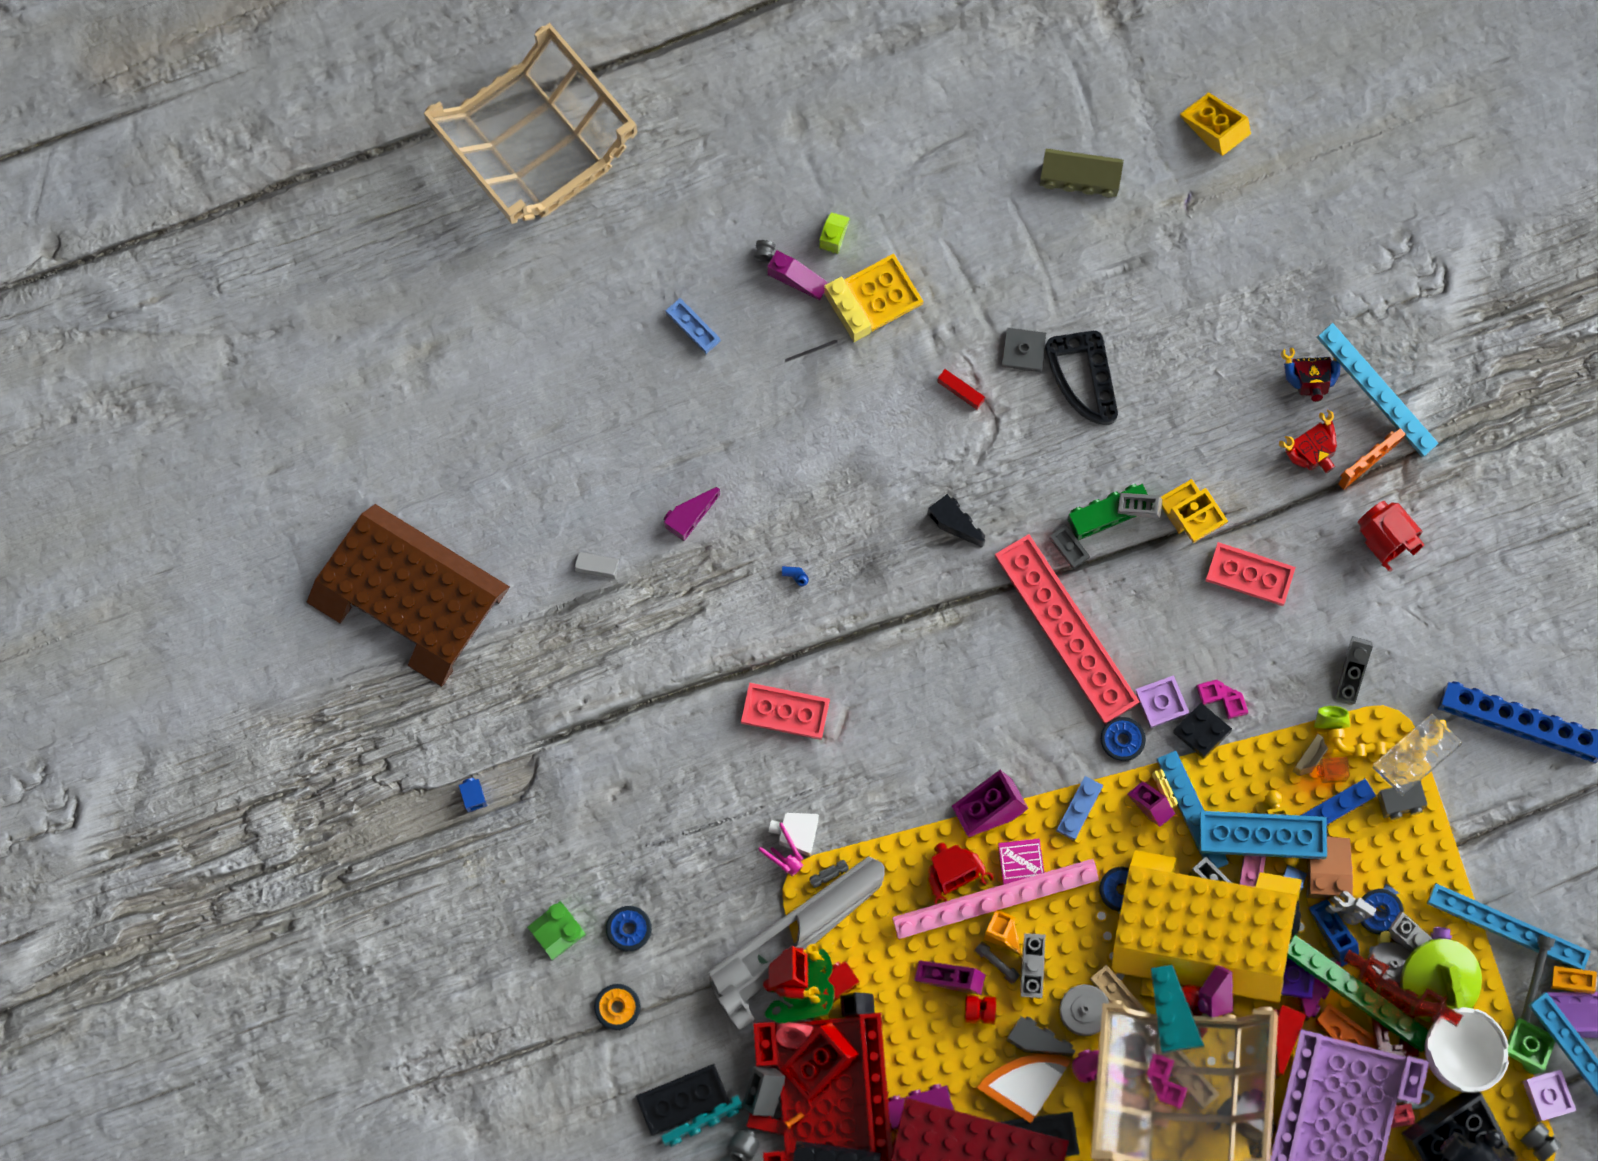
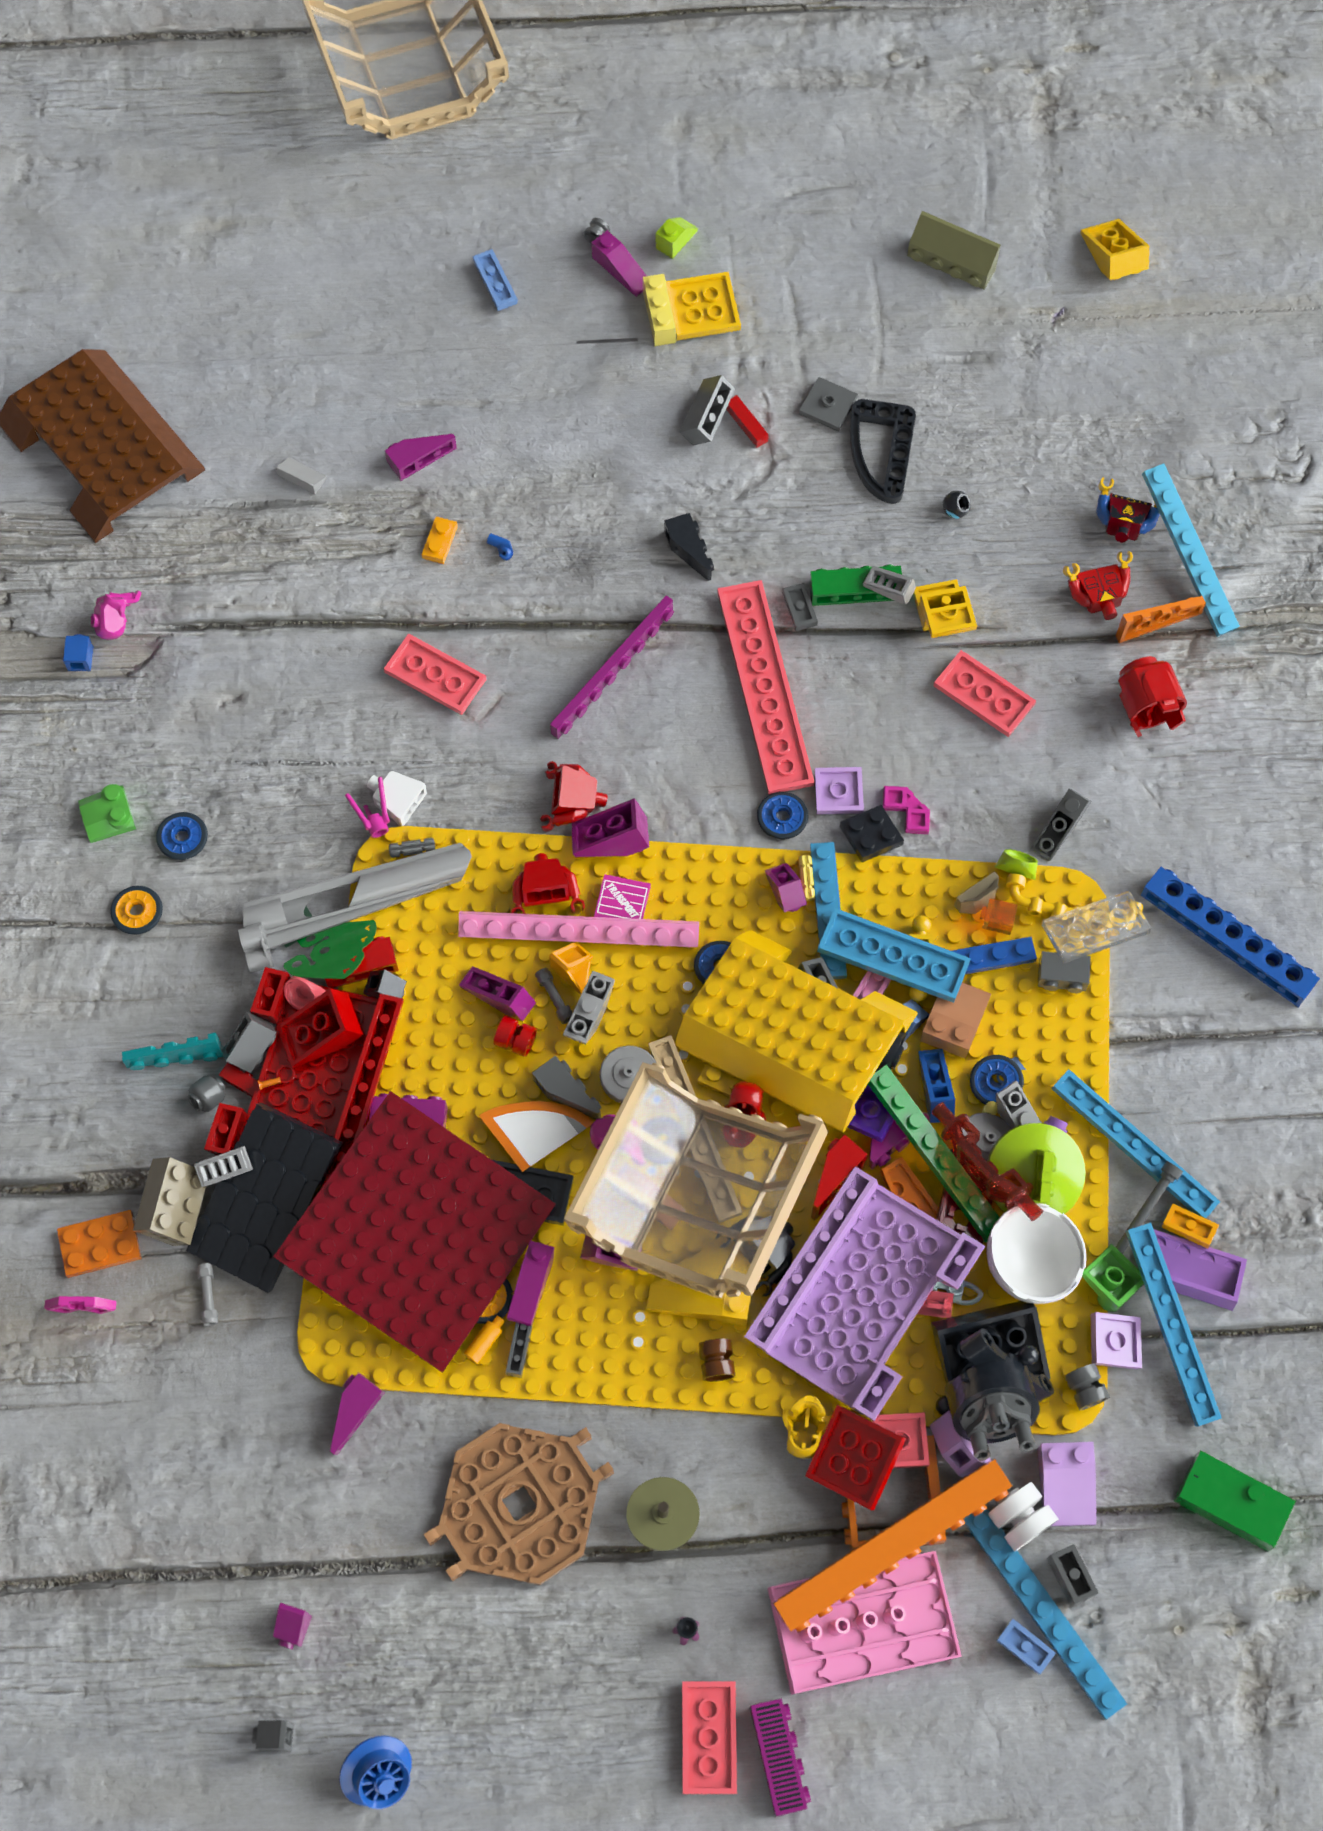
camera: 20 degrees right, 5 degrees down
(488, 751) = (109, 614): none -> dark pink head
(682, 1099) = (161, 1023): black tile -> none
(740, 586) = (439, 540): none -> light orange plate
(790, 973) = (325, 927): red torso -> none
(925, 392) = (707, 410): none -> dark grey brick
(931, 663) = (607, 673): none -> magenta plate
(944, 780) = (572, 795): none -> torso
(1079, 808) = (706, 868): medium blue plate -> none
(1166, 1091) = (679, 1163): dark pink tile -> none
(1167, 410) = (956, 504): none -> black piece
(1174, 1016) = (718, 1110): teal wing -> none
(1217, 993) = (774, 1097): magenta slope -> none
(1353, 909) = (962, 1063): light grey plate -> none

